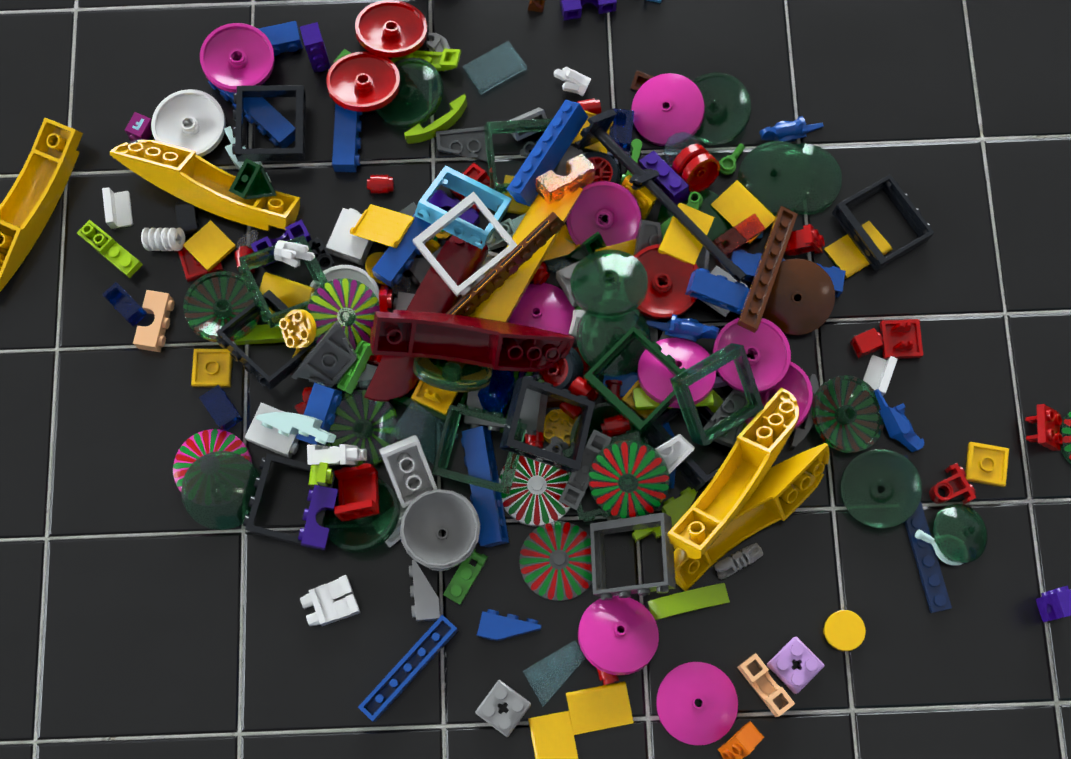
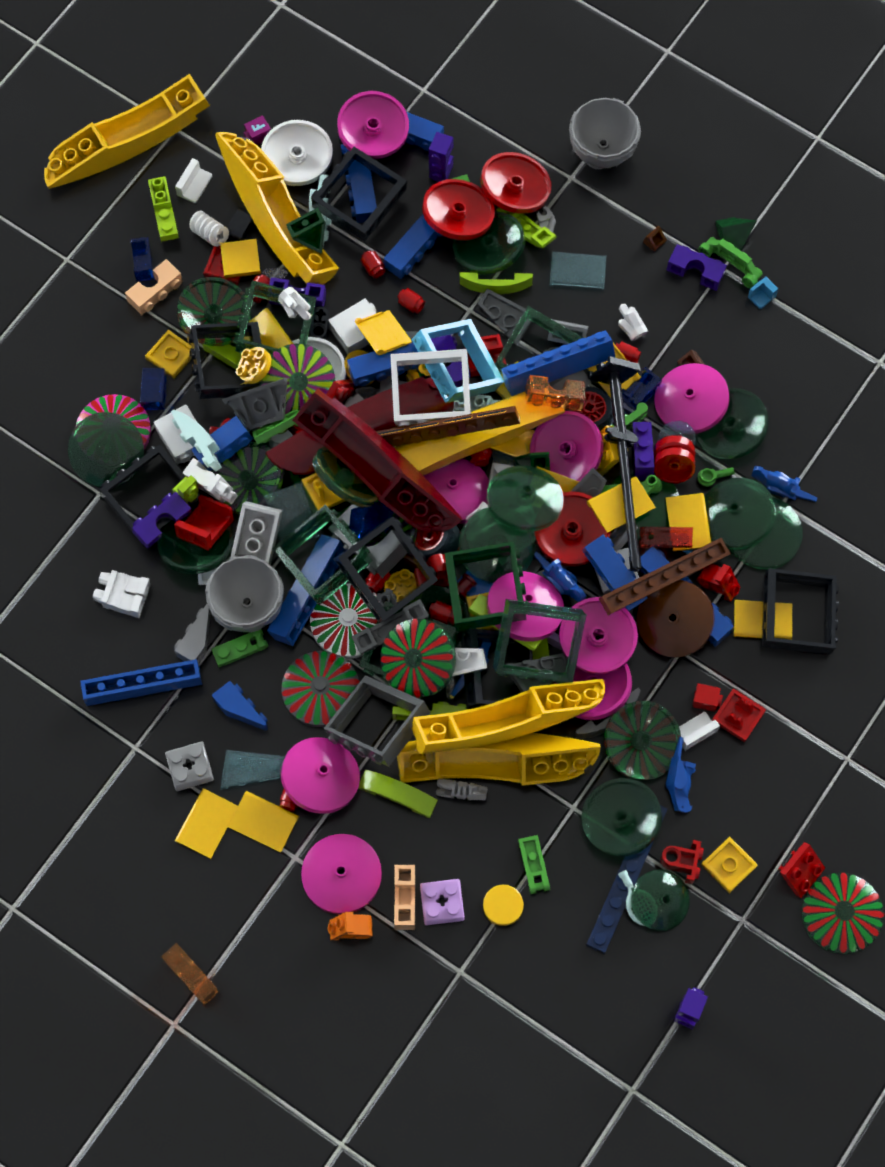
camera: 35 degrees right, 5 degrees down
(325, 175) = (373, 264): none -> red brick
(841, 578) = (533, 863): none -> bright green plate

